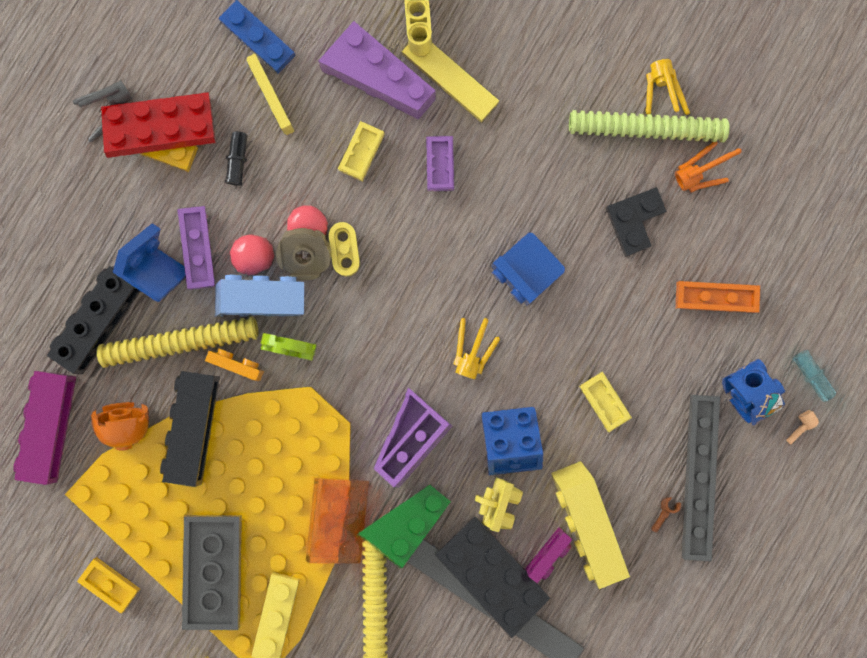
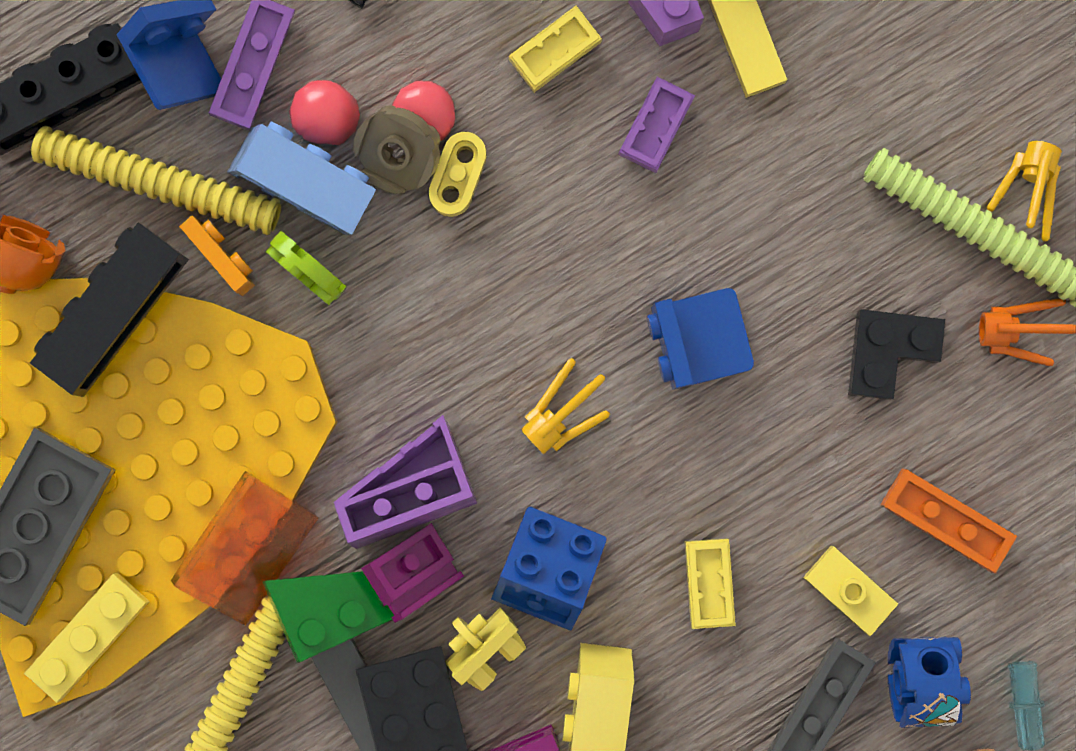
camera: 20 degrees right, 0 degrees up
(437, 484) = (412, 572): none -> magenta plate
(684, 364) = (850, 590): none -> light yellow plate

